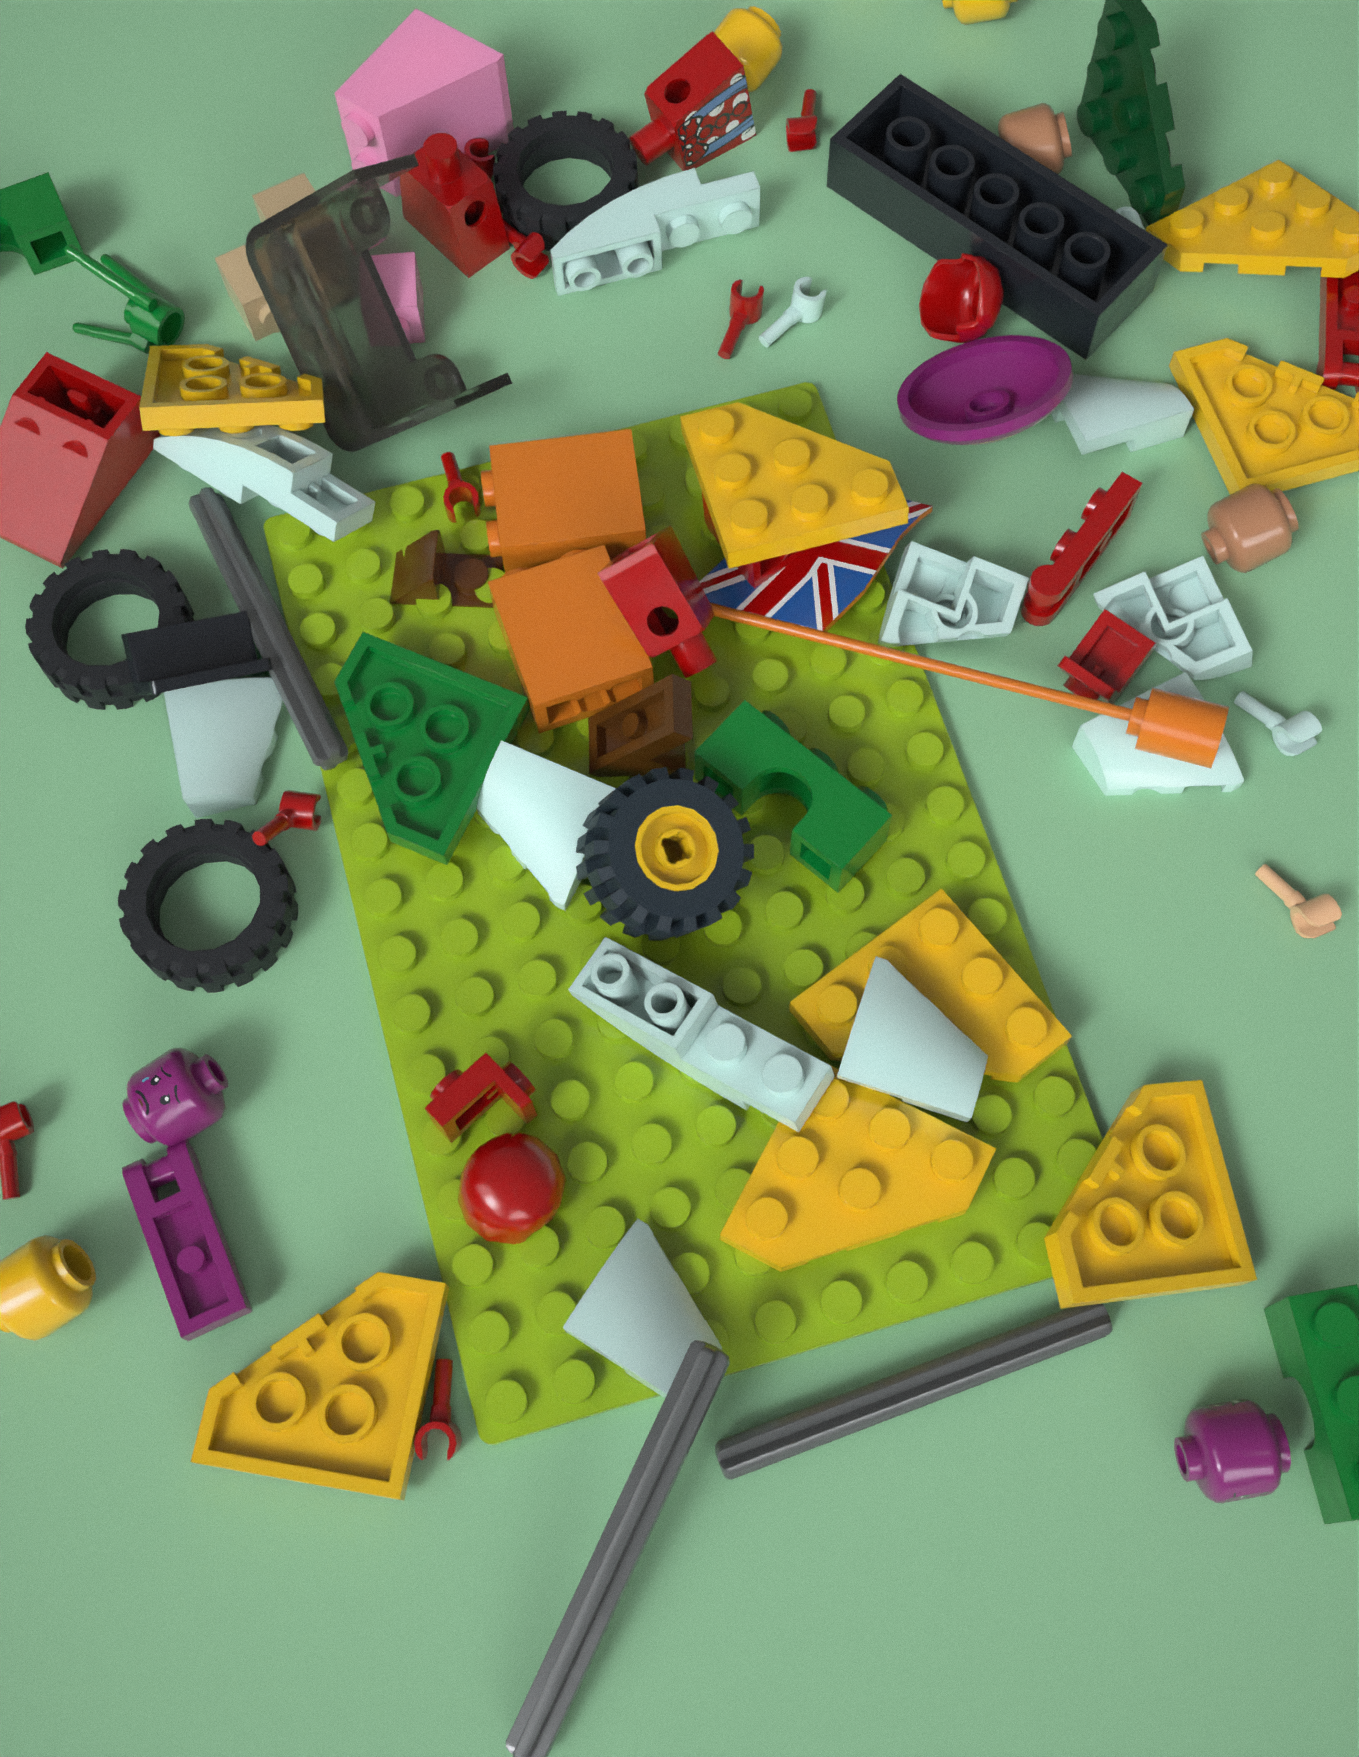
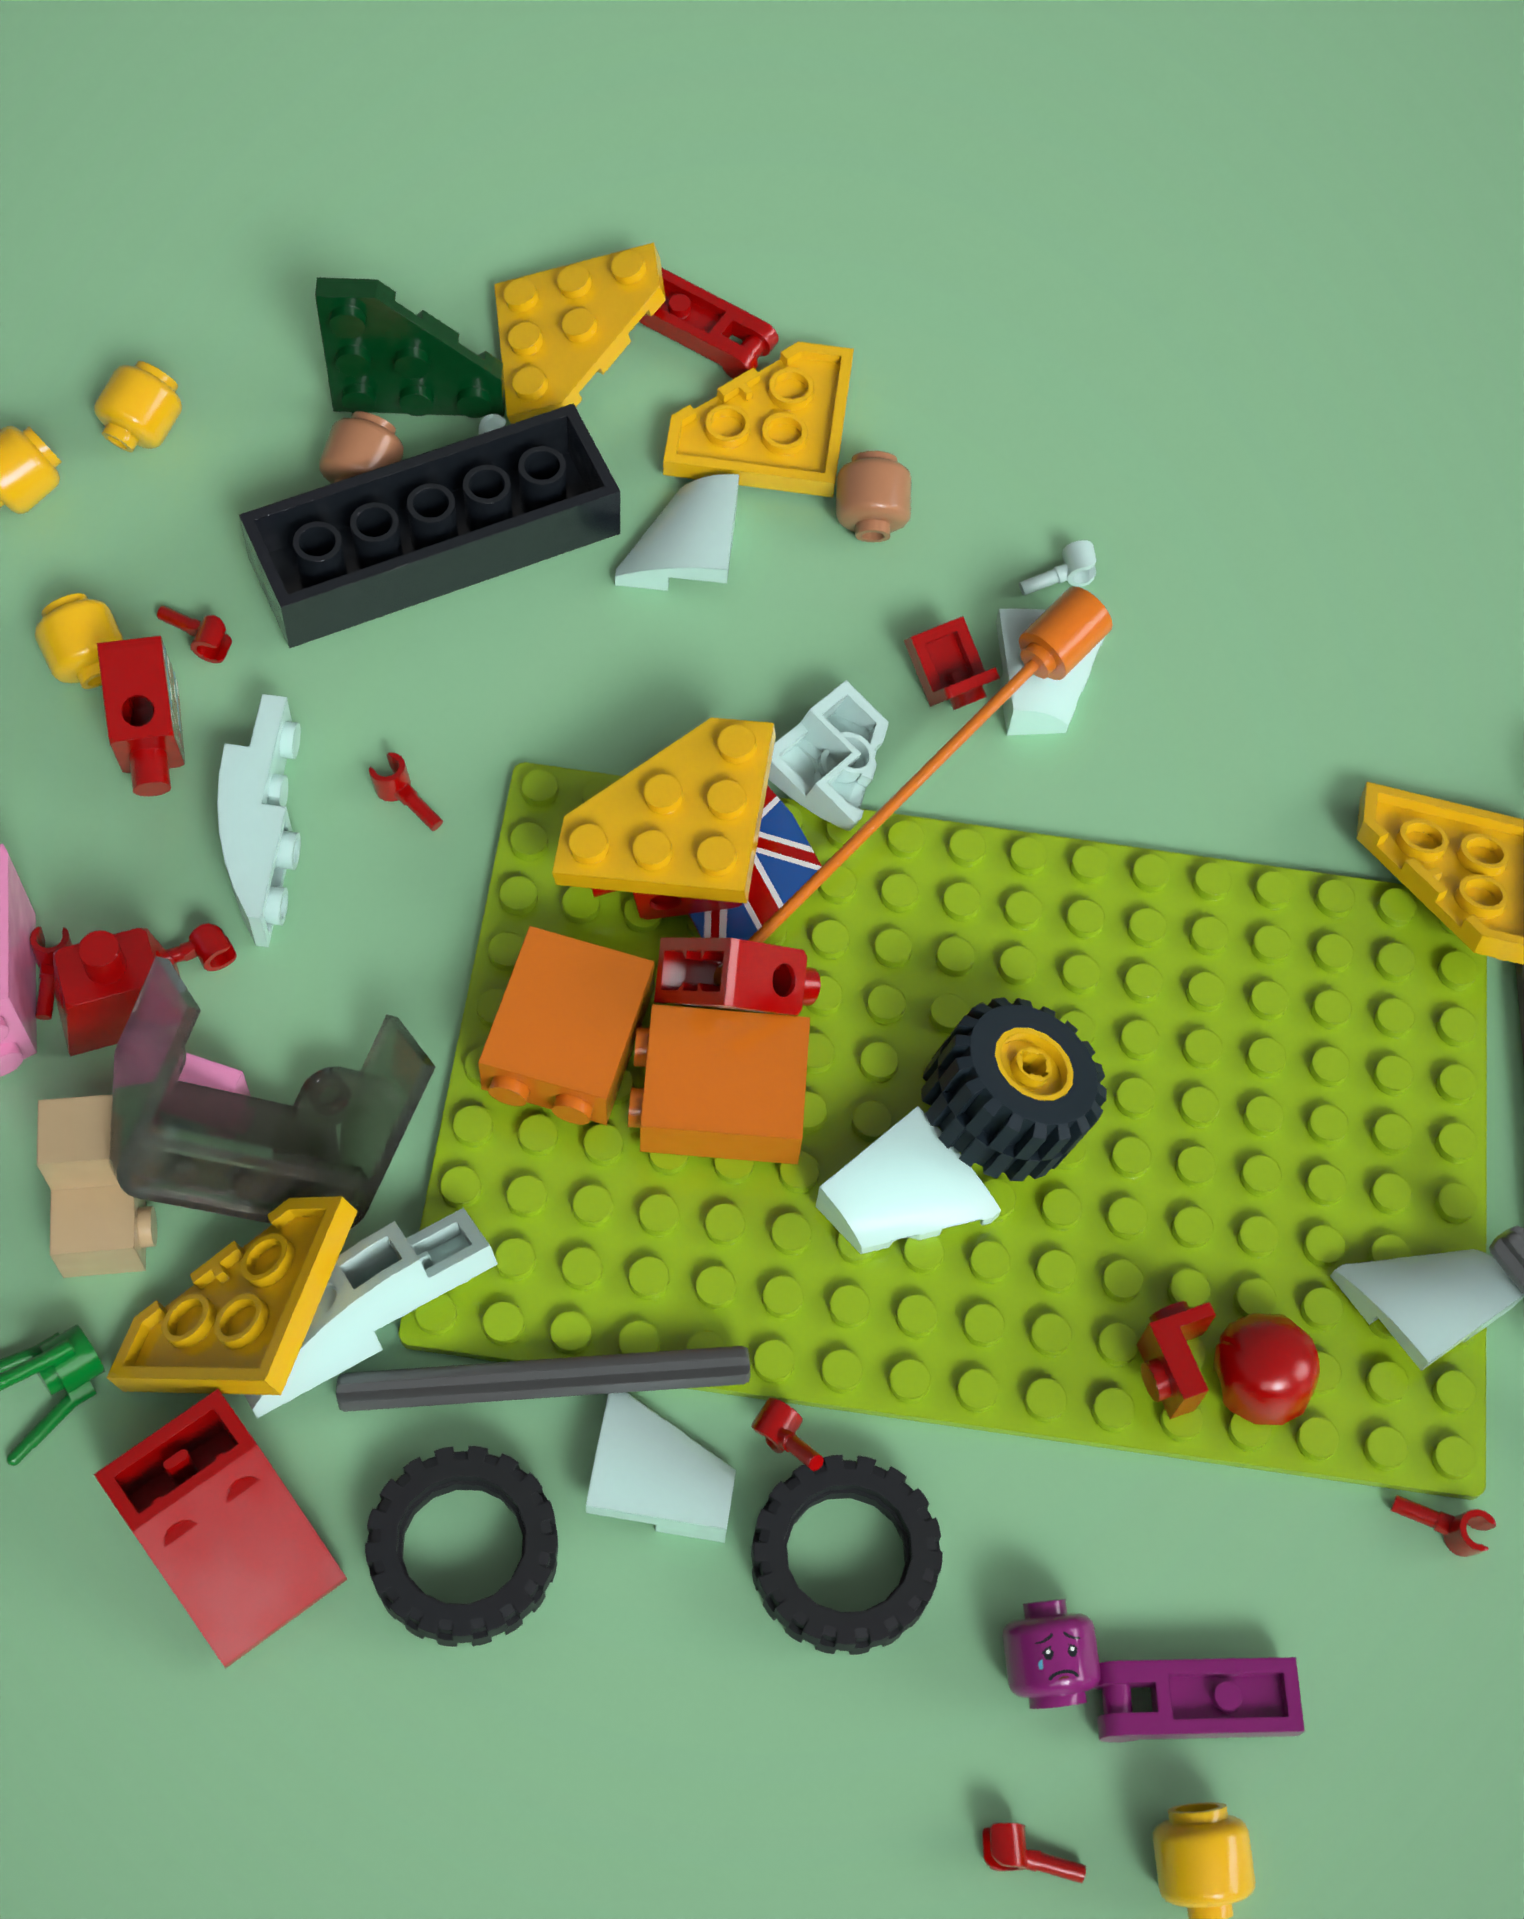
camera: 75 degrees left, 5 degrees down
(192, 653) = (567, 1458): black panel -> none
(335, 1394) = (1400, 1609): yellow plate -> none
(424, 739) = (768, 1266): green plate -> none
(428, 566) = (565, 1188): reddish brown slope -> none
(457, 488) = (484, 1126): red hand -> none
(553, 140) = (131, 818): black tyre -> none
(643, 731) = (860, 1060): reddish brown slope -> none
(700, 1037) = (1191, 1140): light aqua slope -> none
(759, 757) = (1025, 938): green arch -> none
(802, 309) = (424, 736): light aqua hand -> none
(853, 1178) = (1352, 1082): yellow plate -> none
(911, 1048) = (1278, 971): light aqua slope -> none
(958, 973) = (1218, 948): yellow plate -> none
(961, 299) = (510, 595): red hair -> none
(985, 389) = (630, 619): magenta dish -> none
(1078, 552) = (827, 624): red plate -> none
(1184, 619) = (931, 588): light aqua slope -> none
(1308, 917) = (1247, 640): light nougat hand -> none

